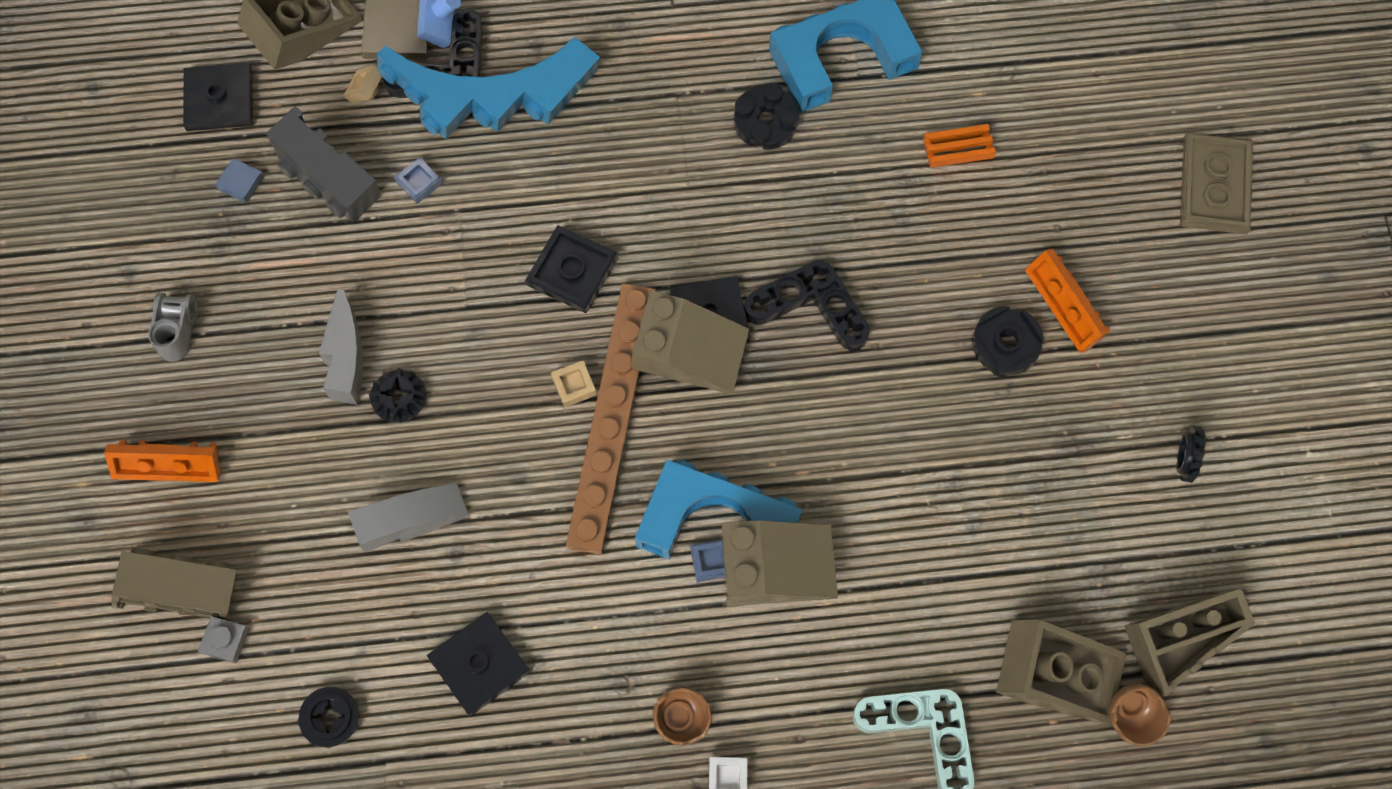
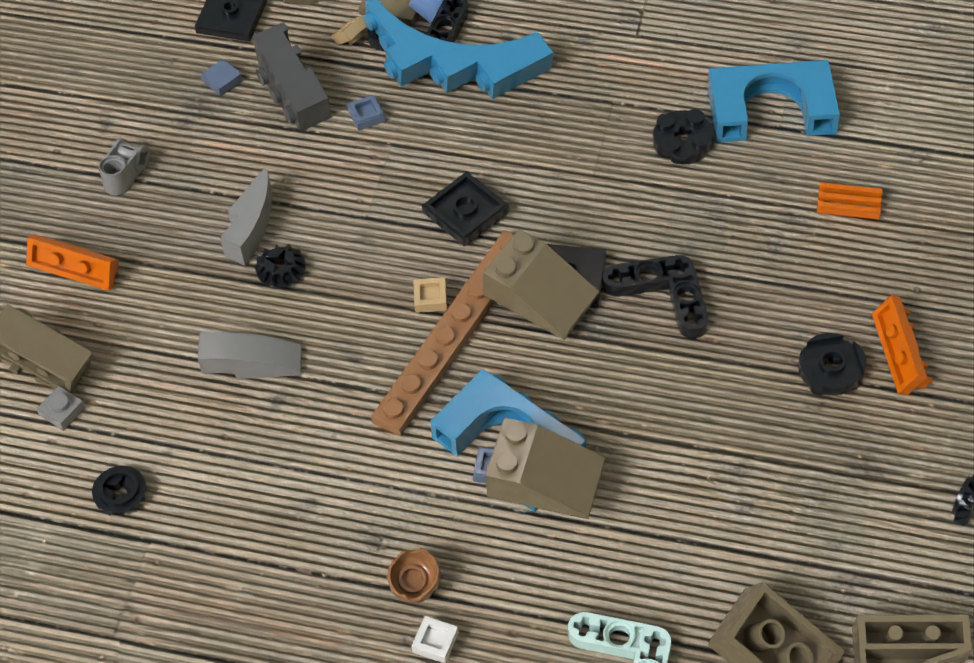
camera: 25 degrees right, 15 degrees down
(478, 664) = (259, 487): black plate -> none

